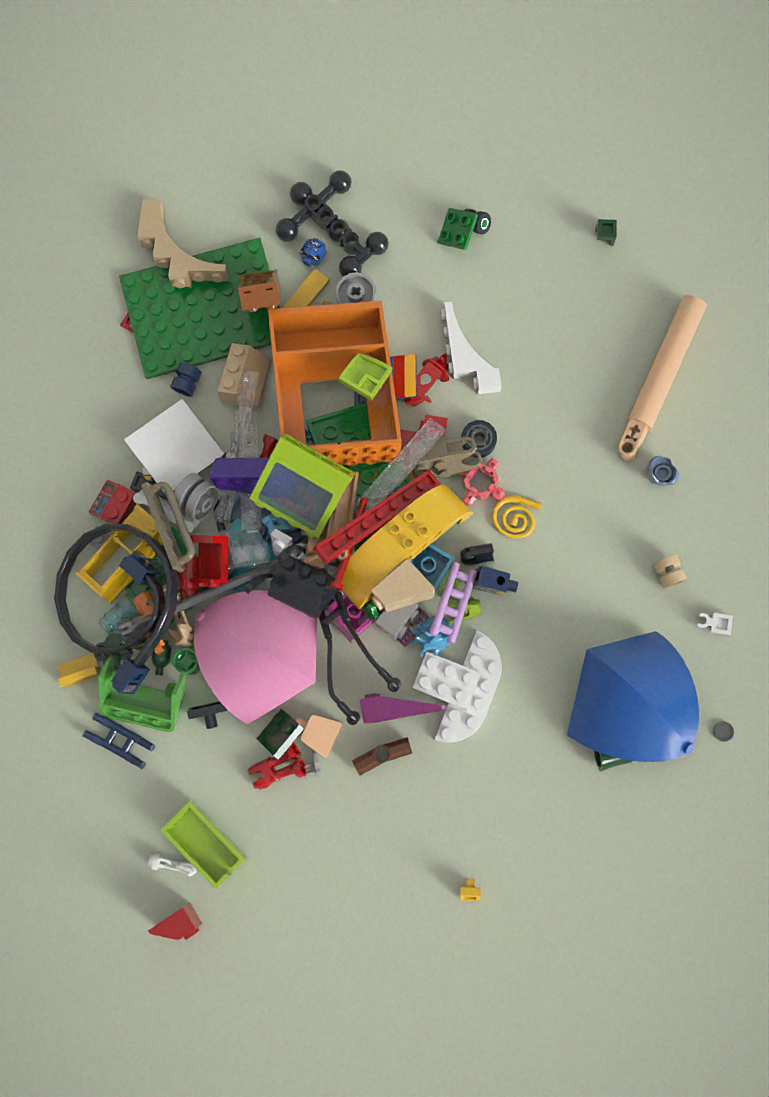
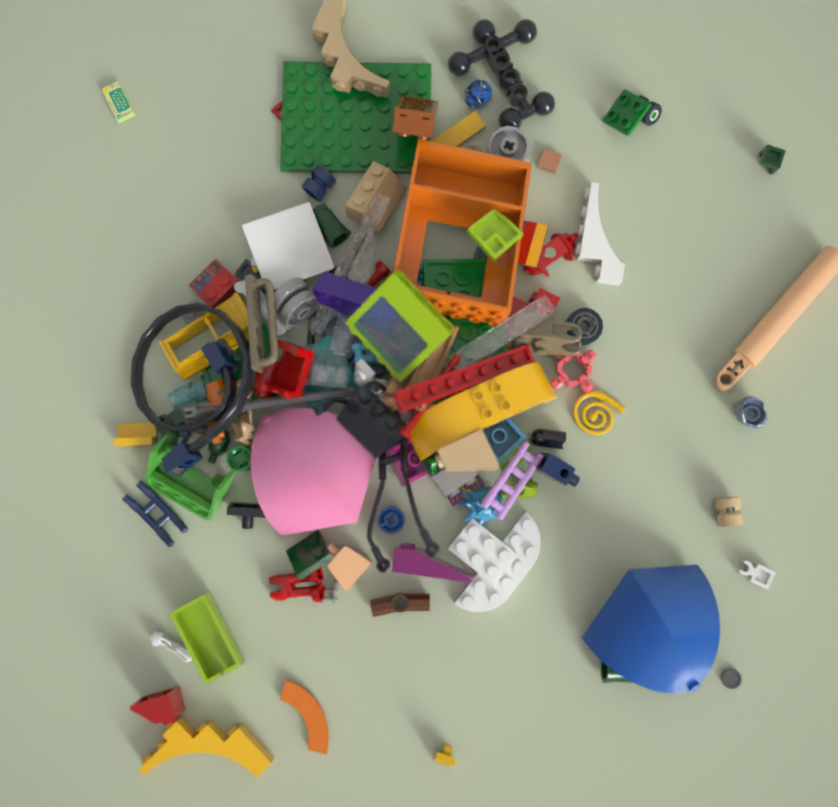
camera: 10 degrees right, 5 degrees up
(207, 952) = (236, 745): none -> yellow arch
(209, 416) = (330, 226): none -> dark green plant
(327, 889) = (311, 712): none -> orange tile
(349, 677) = (391, 519): none -> blue wheel
(399, 294) = (549, 160): none -> nougat tile

